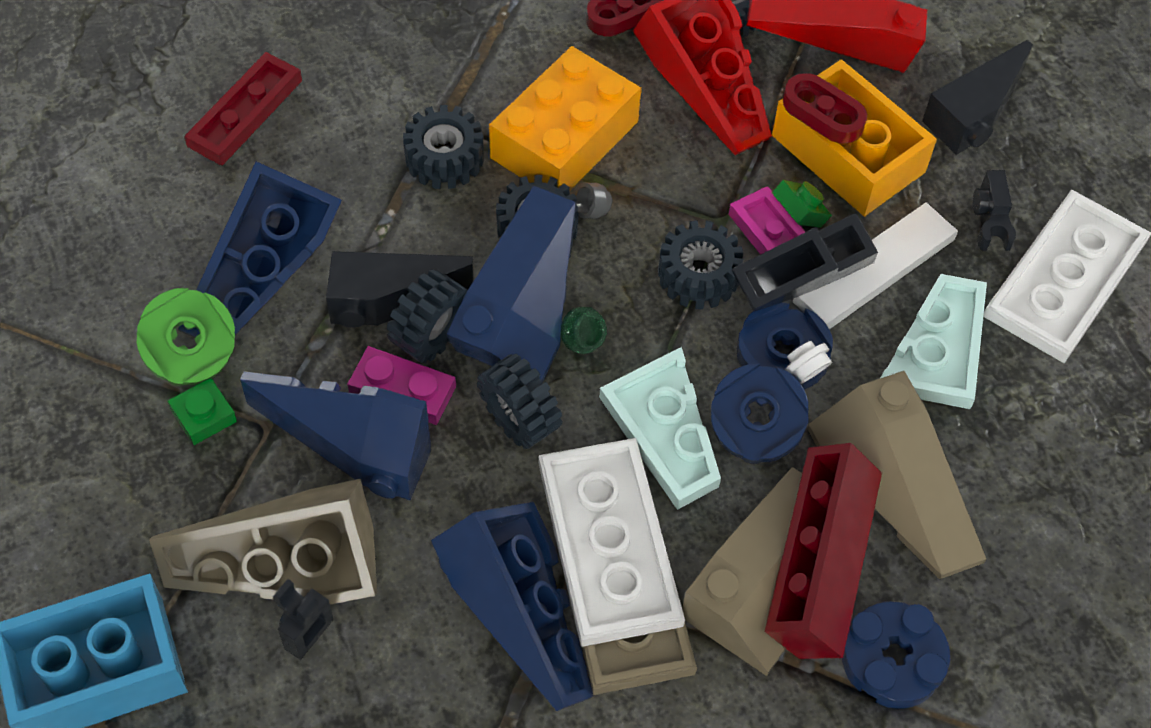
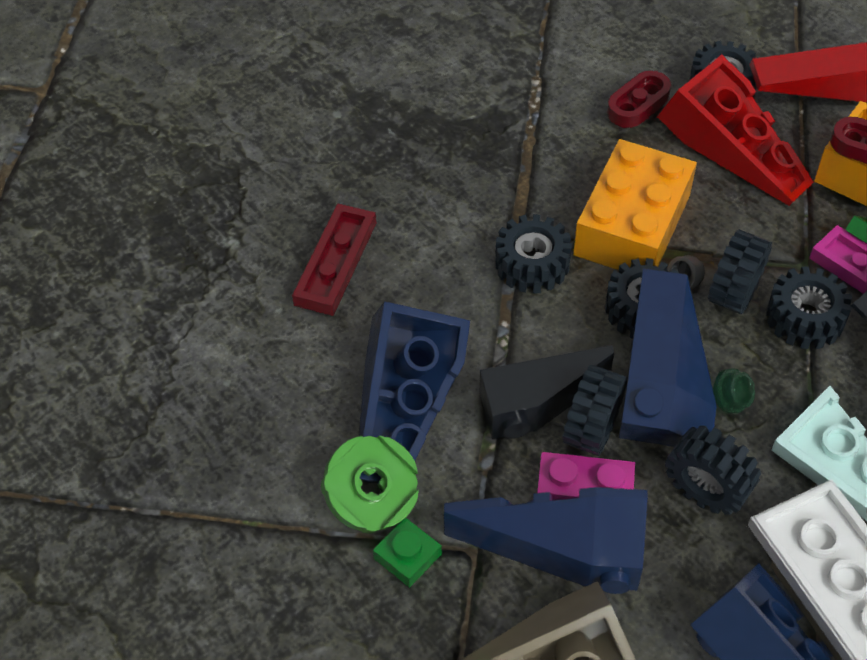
camera: 10 degrees left, 5 degrees down
(638, 211) = (739, 271): none -> black bush

